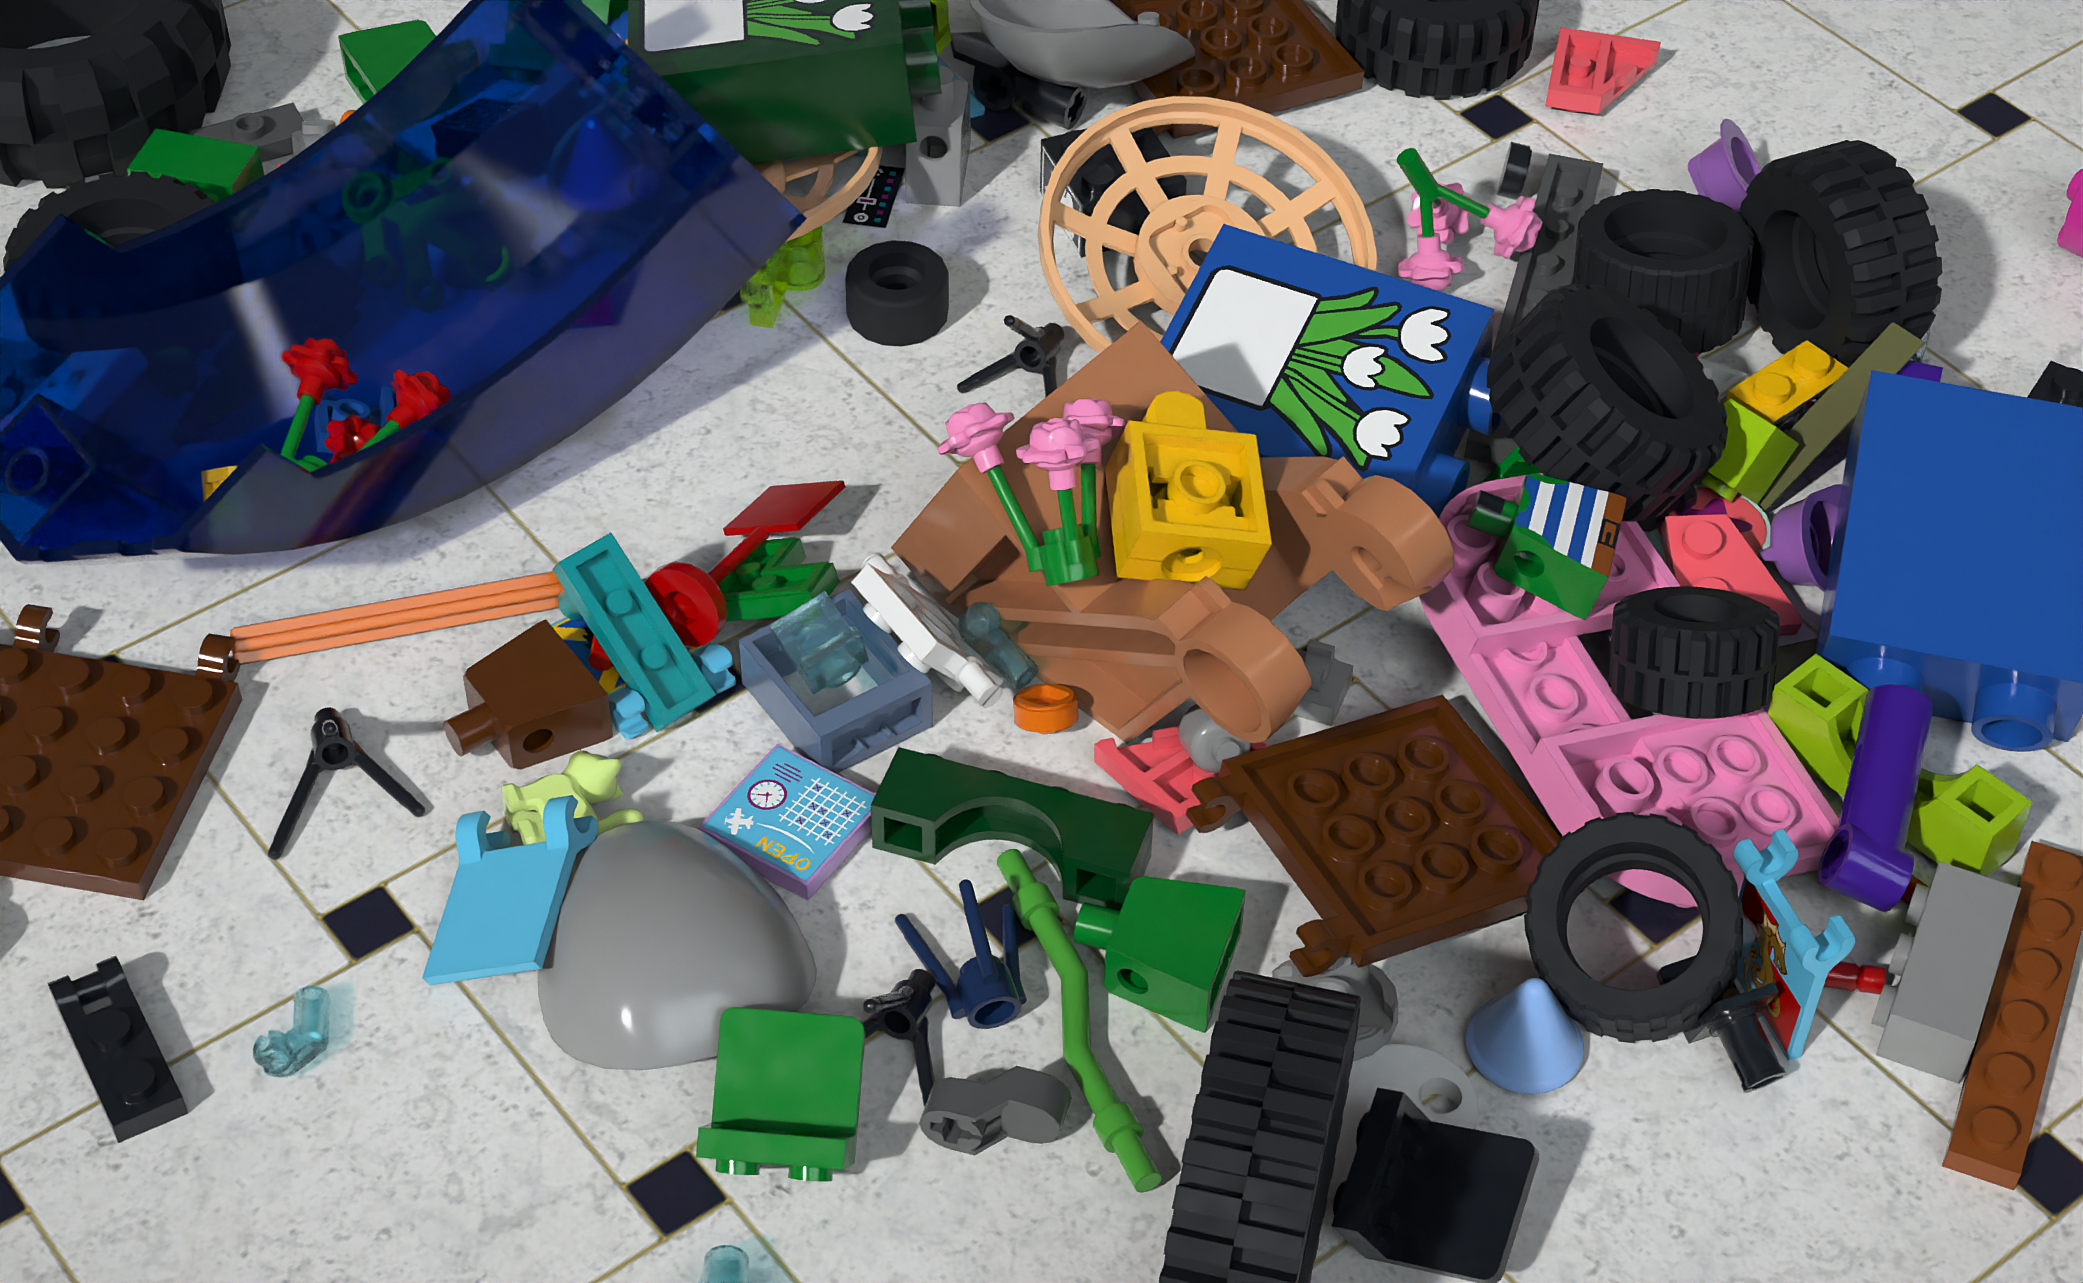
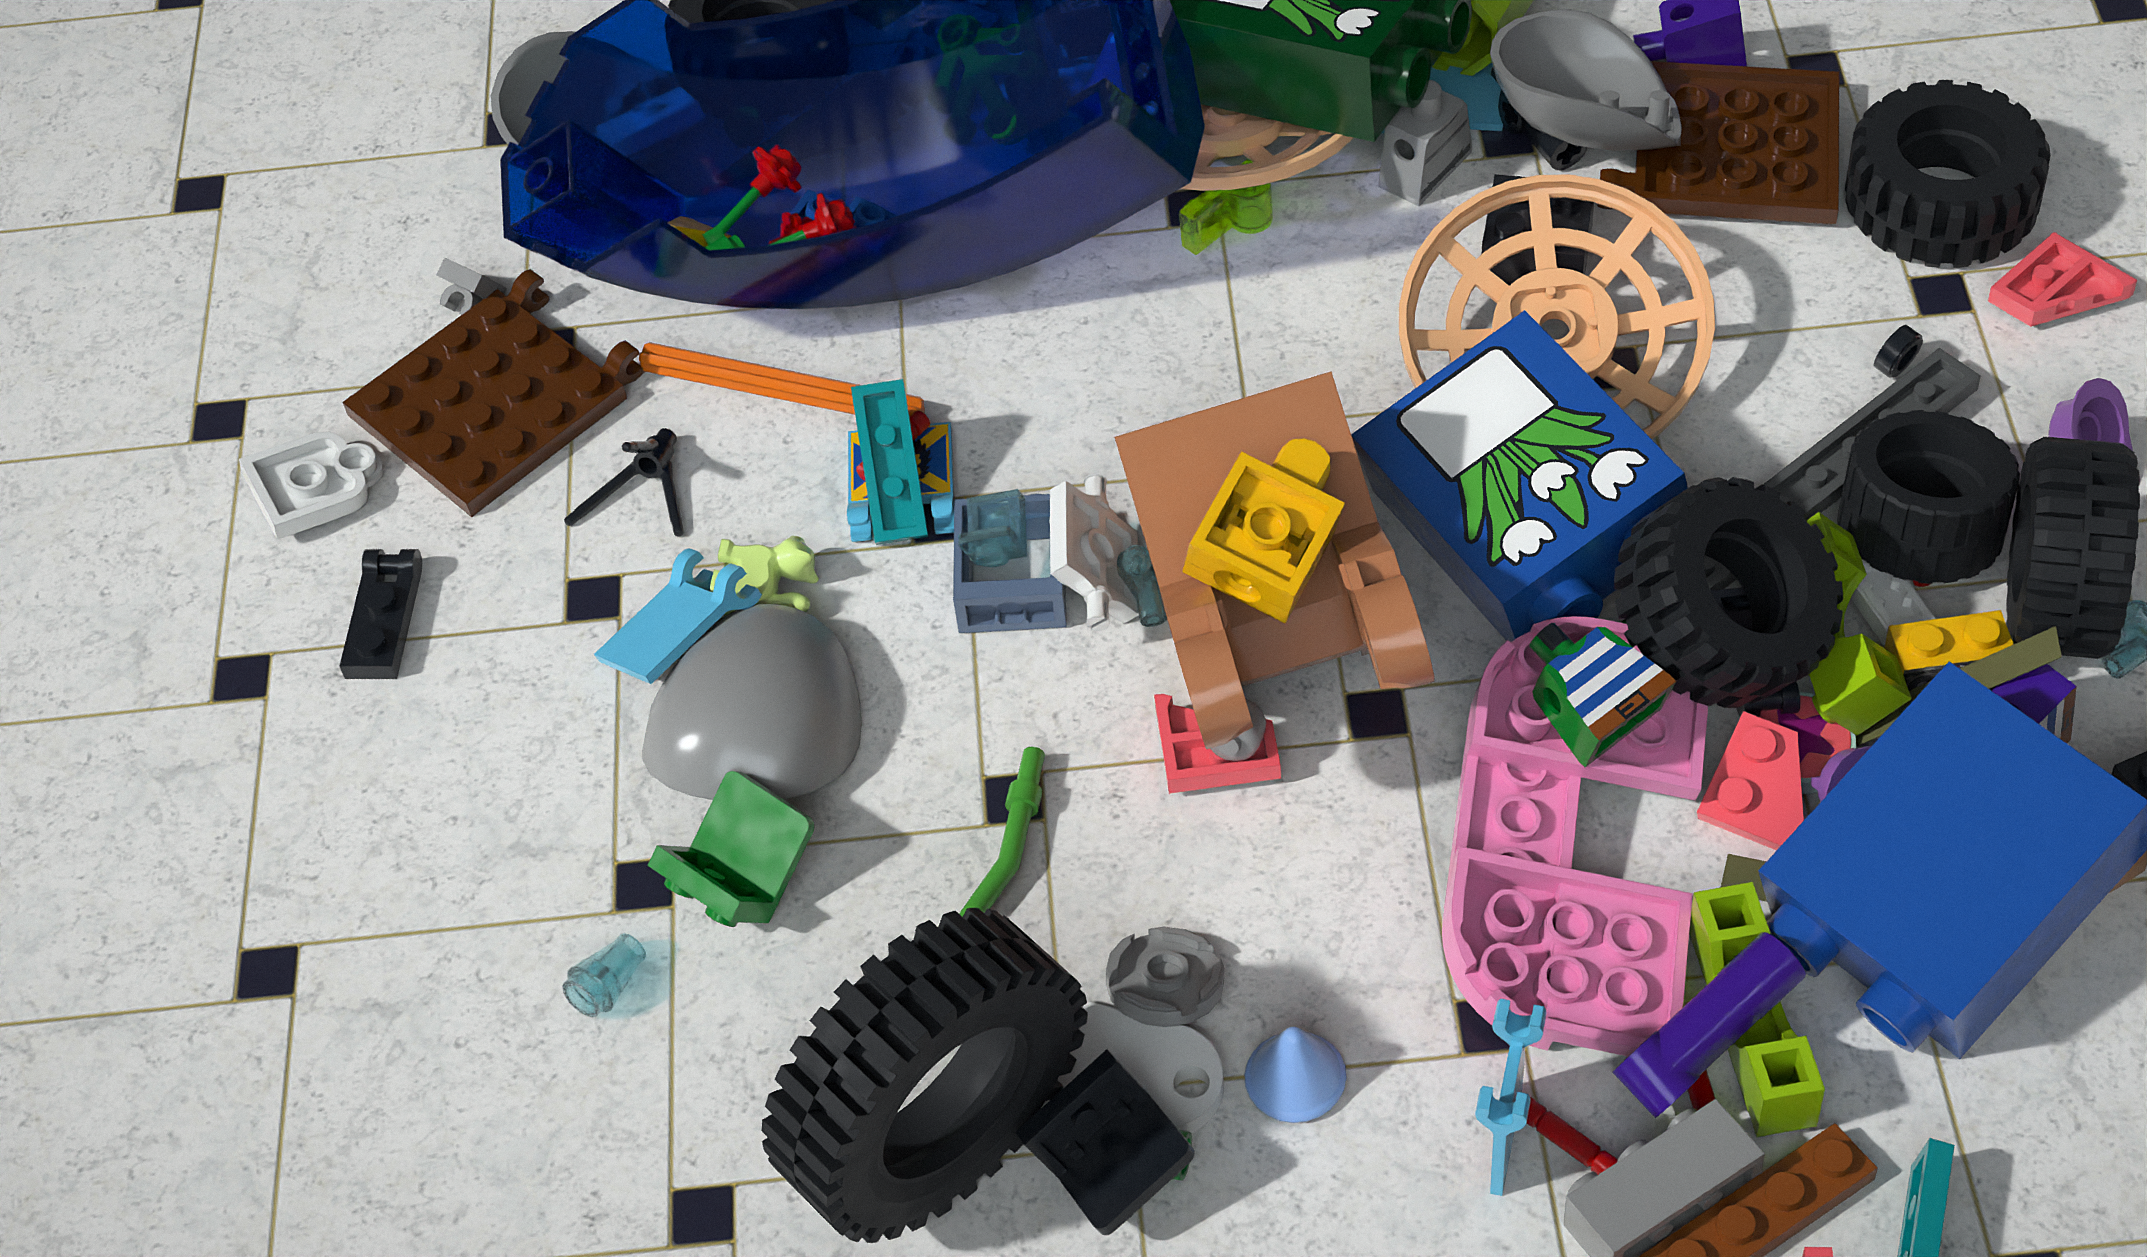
camera: 40 degrees right, 5 degrees up
(289, 1052) = (489, 664): clear light blue arm -> none
(531, 702) = (795, 483): reddish brown torso -> none
(693, 597) = (943, 455): red piece -> none
(775, 581) = (1015, 462): green tile -> none
(792, 820) = (910, 654): tile -> none
(876, 202) = (1353, 173): black sticker -> none
(897, 293) = (1277, 267): black tyre -> none
(904, 1017) = (870, 832): black plant -> none
(940, 804) = (1009, 691): dark green arch -> none
(979, 1115) = (864, 930): dark grey piece -> none
(987, 989) = (939, 841): dark blue plant -> none
(1032, 354) = (1367, 355): black plant -> none
(1045, 708) = (1147, 650): orange tile -> none
(1054, 446) = (1159, 452): plant -> none
(1167, 945) = (1088, 873): green torso -> none
(1329, 683) = (1364, 724): light grey tile -> none
(1387, 829) = (1318, 867): reddish brown plate -> none
(1442, 210) = (1796, 367): bright pink plant -> none
(1638, 844) = (1350, 996): black tyre -> none
(1693, 652) = (1650, 833): black tyre -> none
(1738, 1027) = (1451, 1137): black bracket -> none

